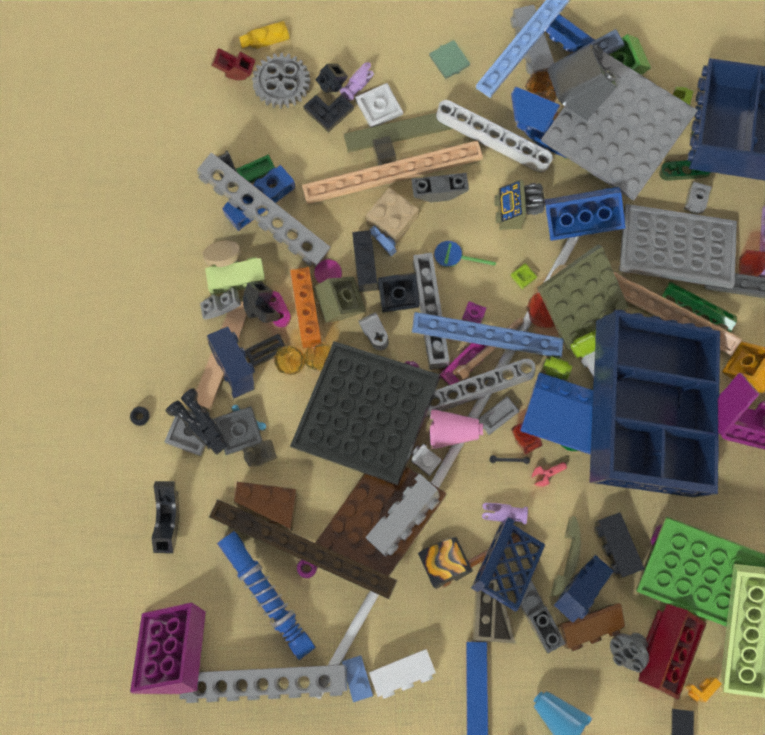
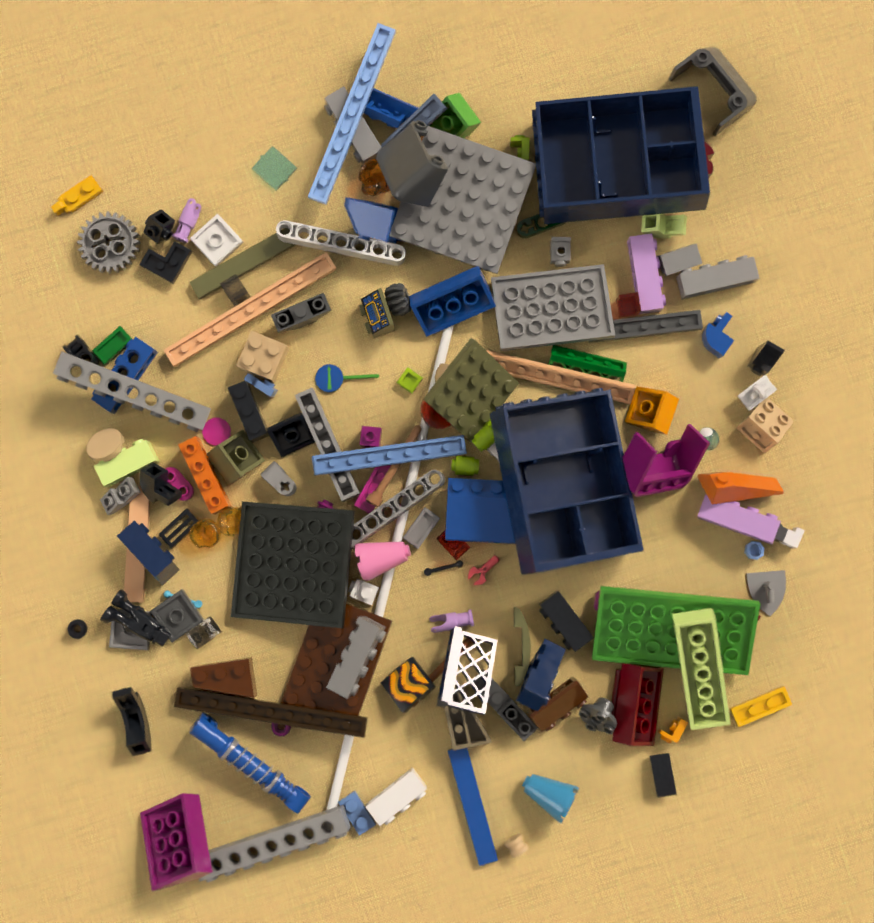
camera: 15 degrees left, 10 degrees up
(235, 67) = (56, 241): dark red brick -> none

